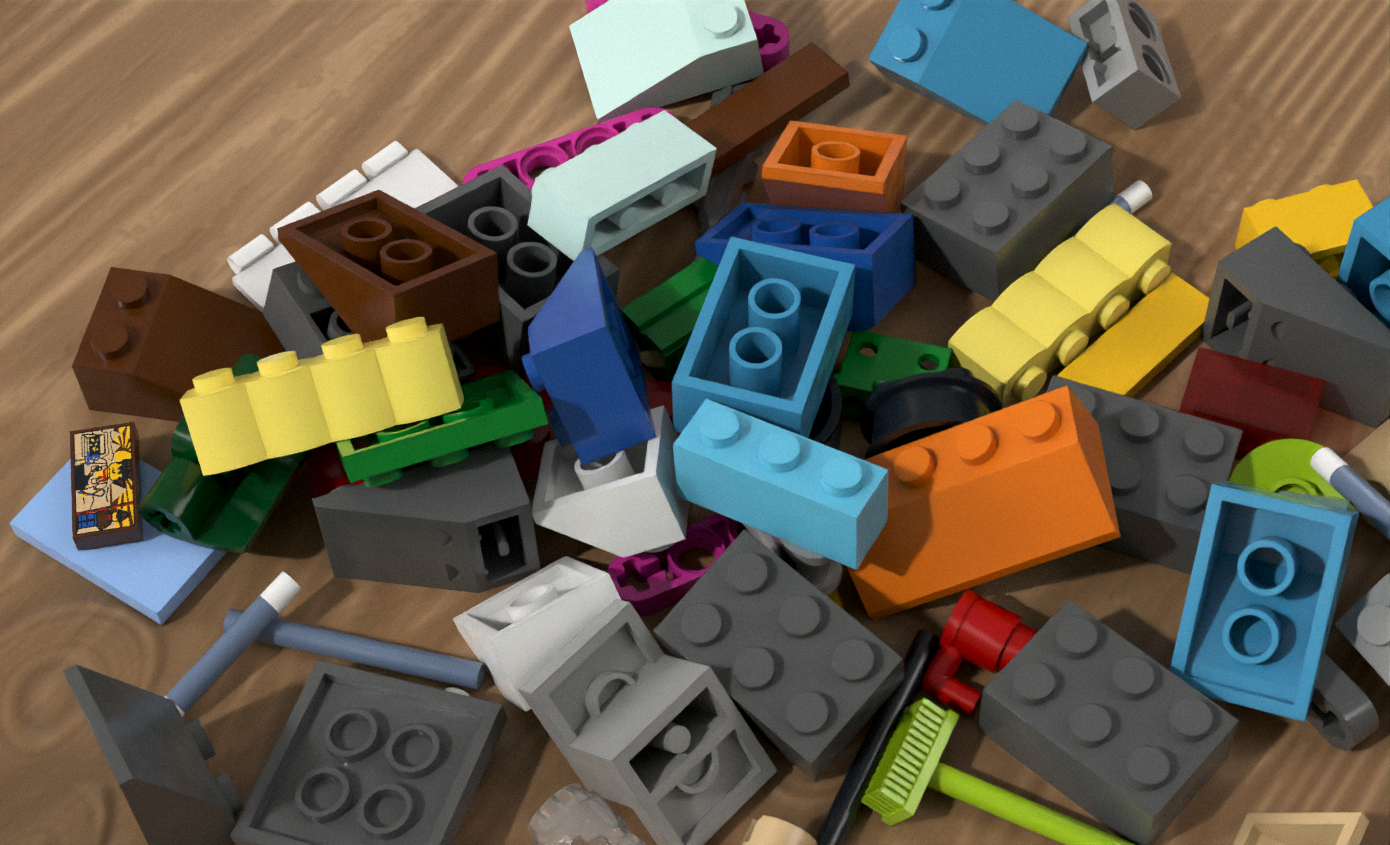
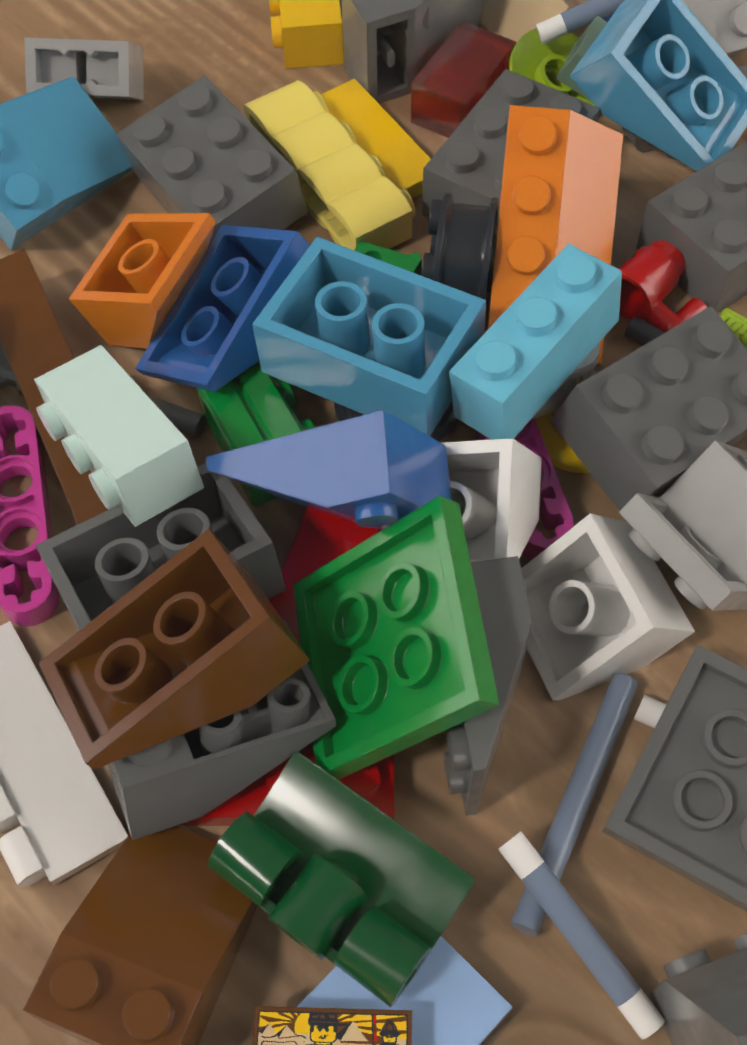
camera: 80 degrees left, 5 degrees up
(321, 398) = (350, 752): light yellow brick -> none

